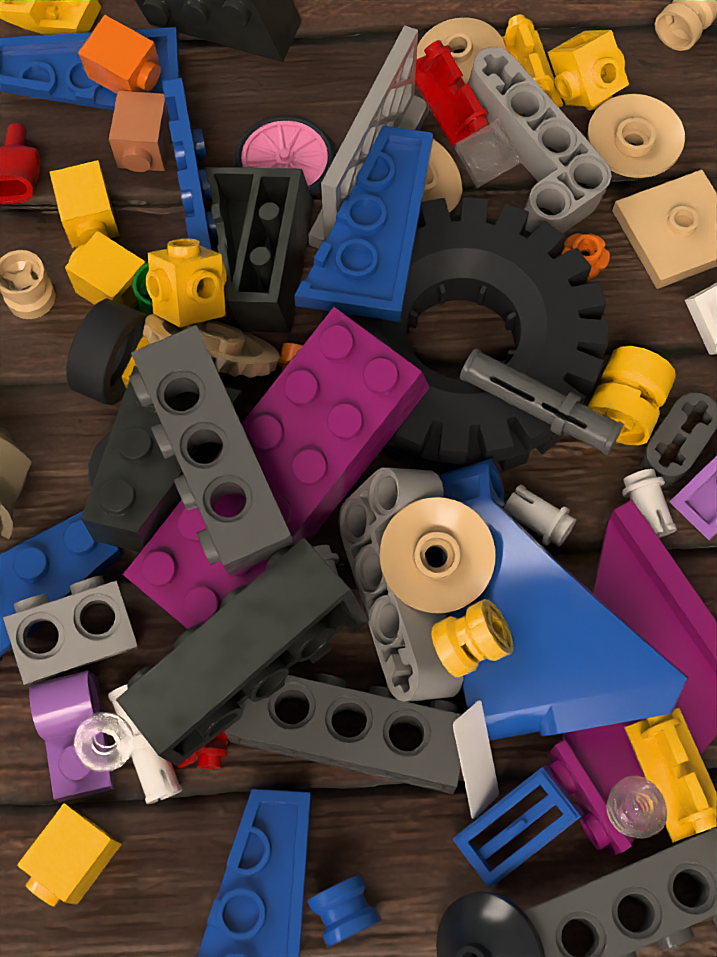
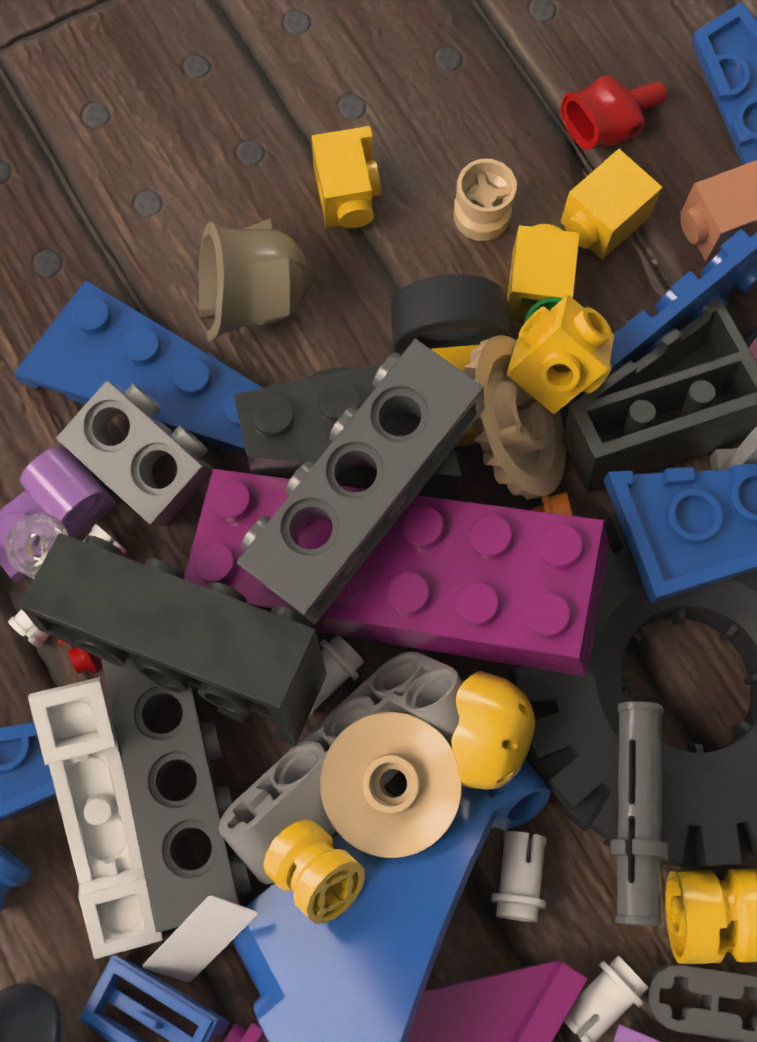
camera: 60 degrees right, 5 degrees up
(343, 797) = (96, 814): none -> white slope
(437, 462) = (491, 731): none -> yellow helmet

